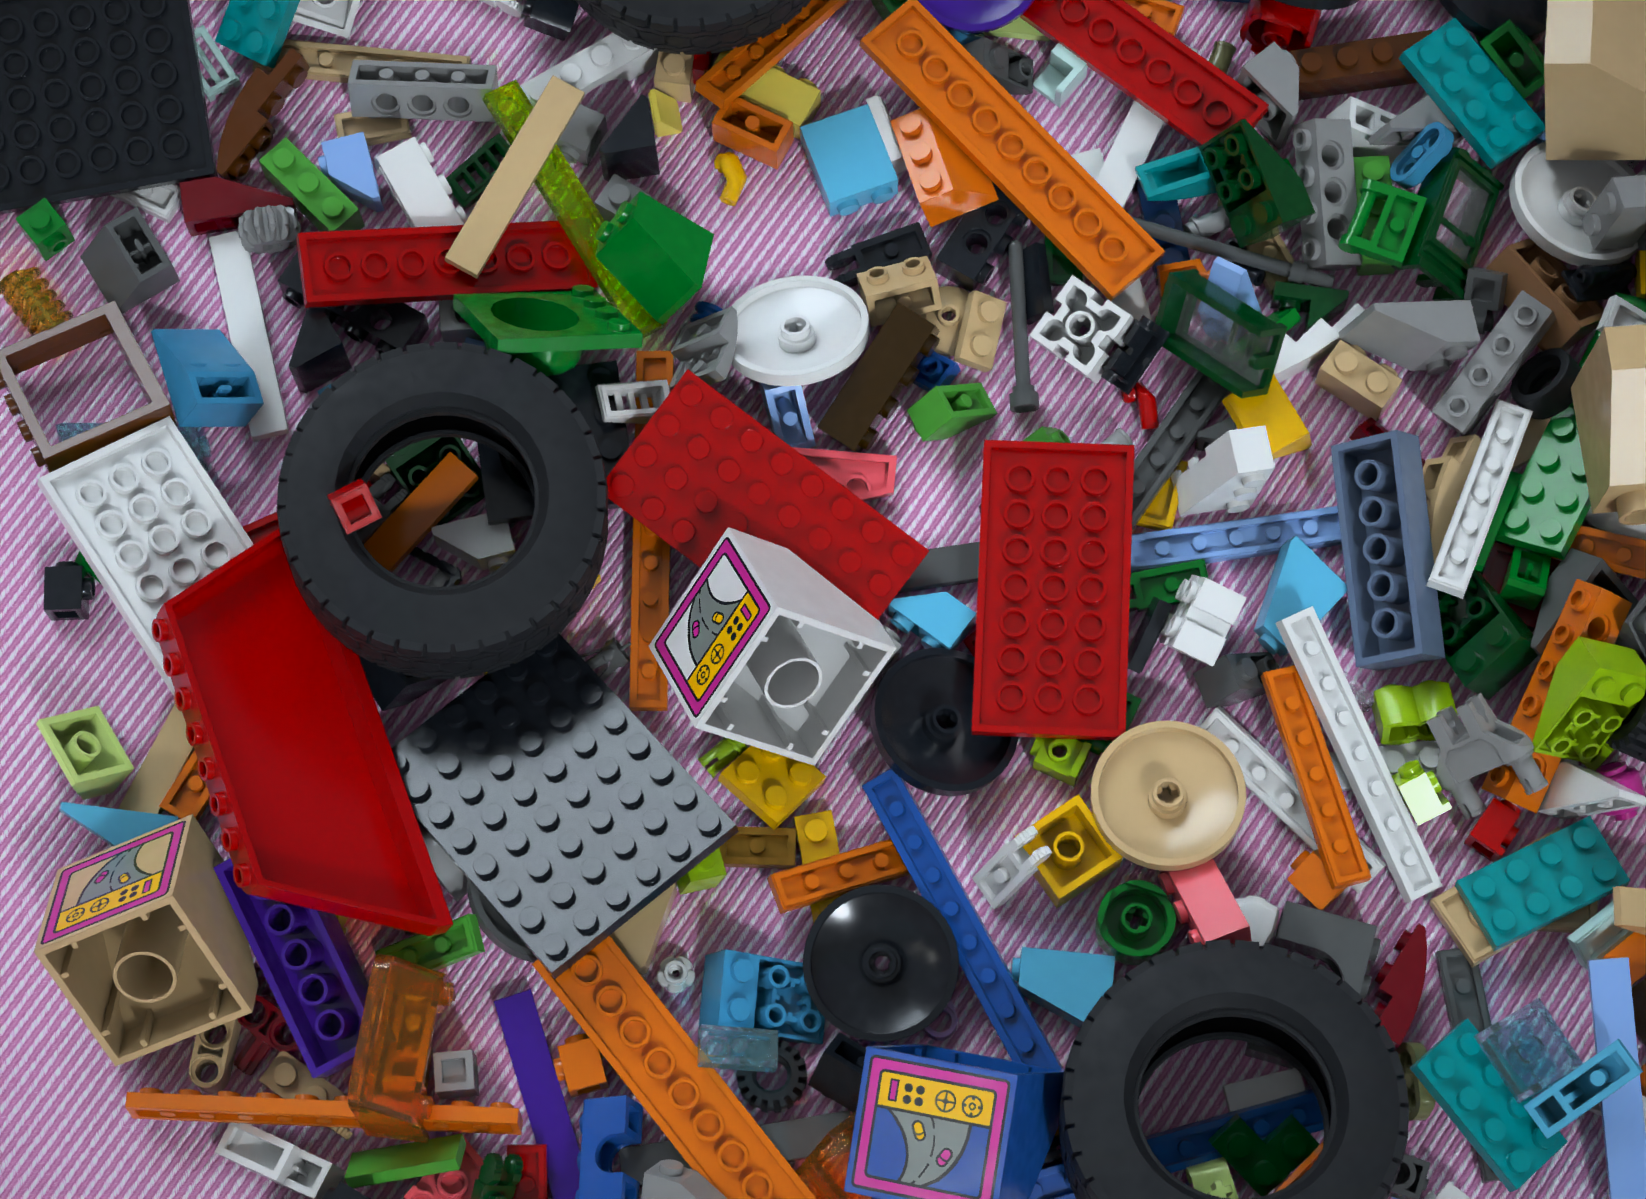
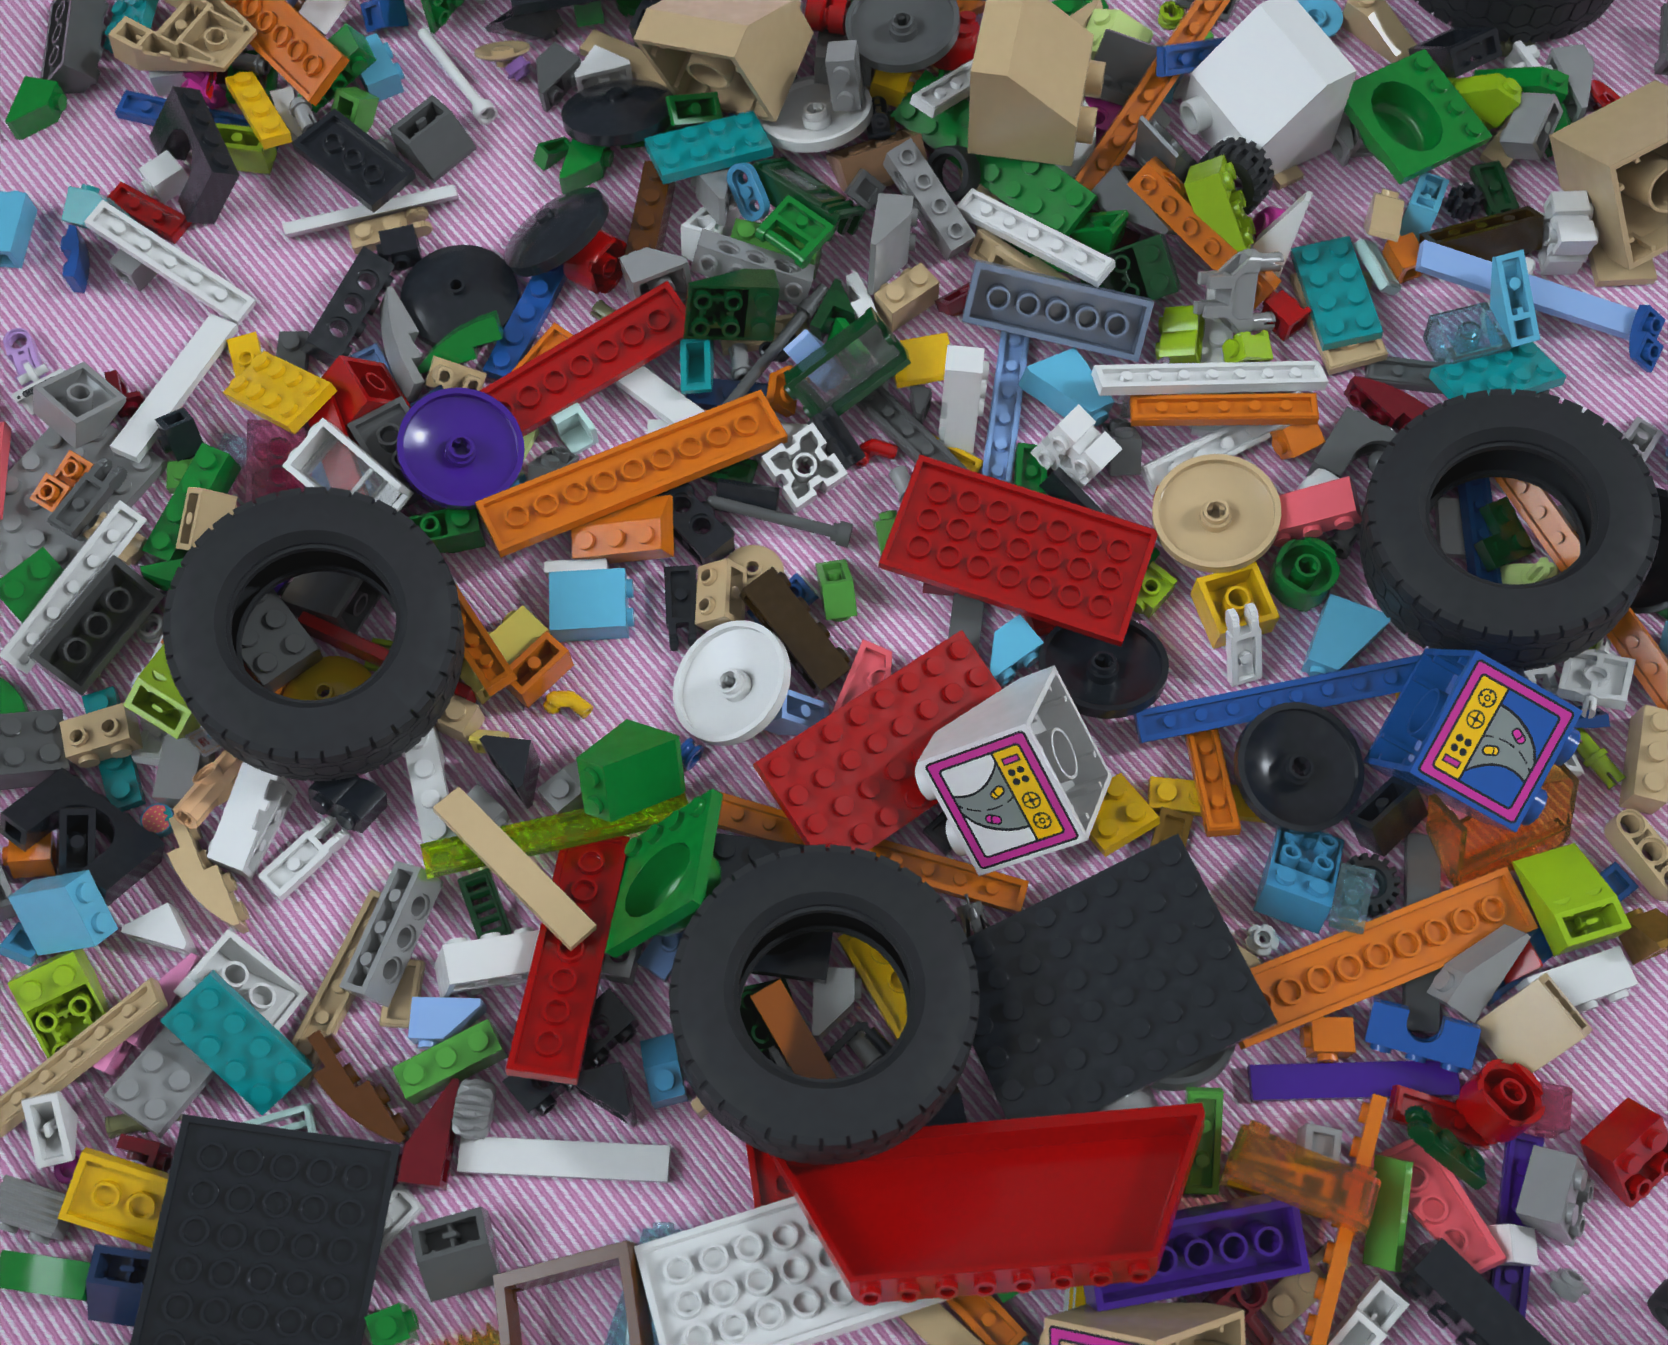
camera: 75 degrees left, 5 degrees down
(207, 378) = (600, 1204): dark azure slope -> none
(354, 506) = (816, 1068): red slope -> none
(656, 389) = (756, 807): white slope -> none
(707, 347) = (725, 759): light grey slope -> none
(725, 752) = (1082, 856): lime pin -> none
(980, 331) = (773, 549): tan plate -> none

